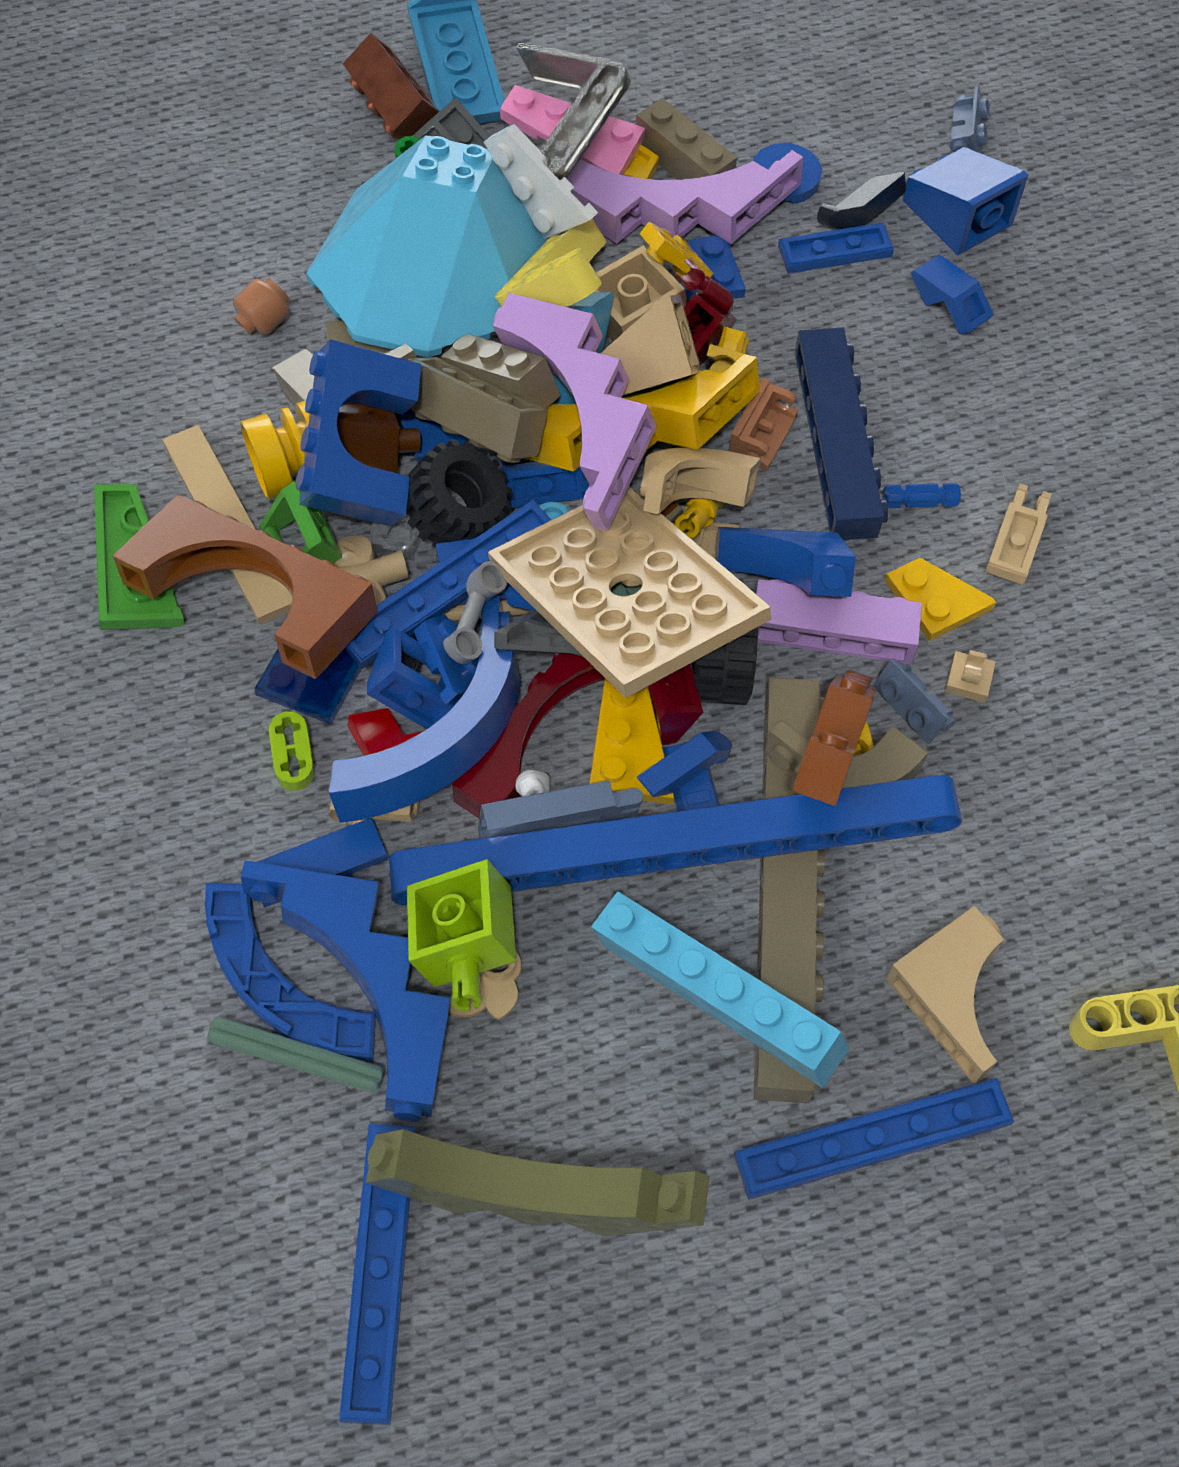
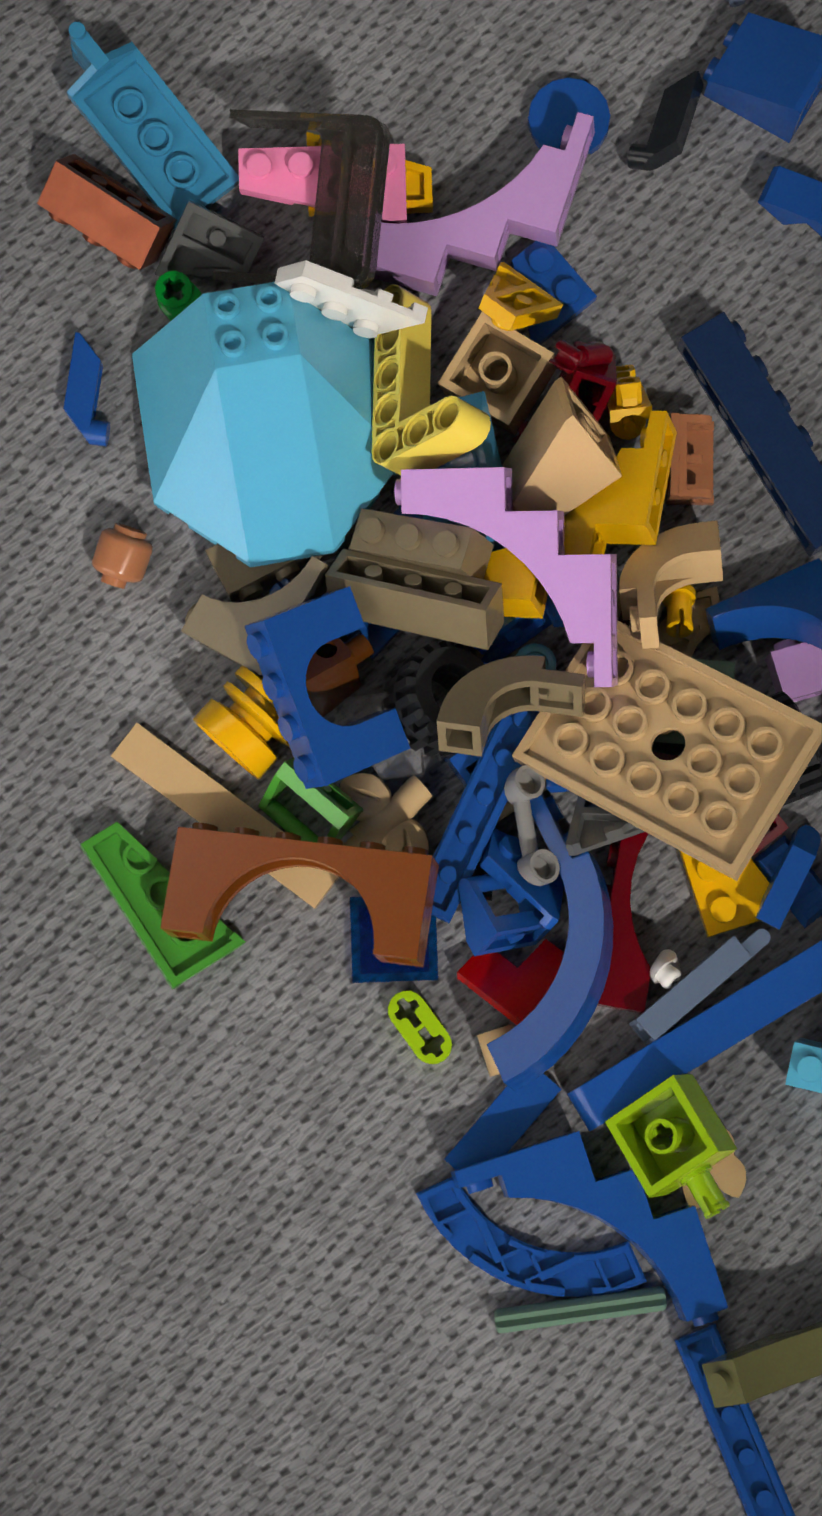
camera: 20 degrees left, 20 degrees up
(302, 197) = (83, 393): none -> blue piece
(501, 490) = (501, 690): none -> dark tan arch
(682, 145) = (456, 146): dark tan brick -> none
(835, 247) = (662, 195): blue tile -> none

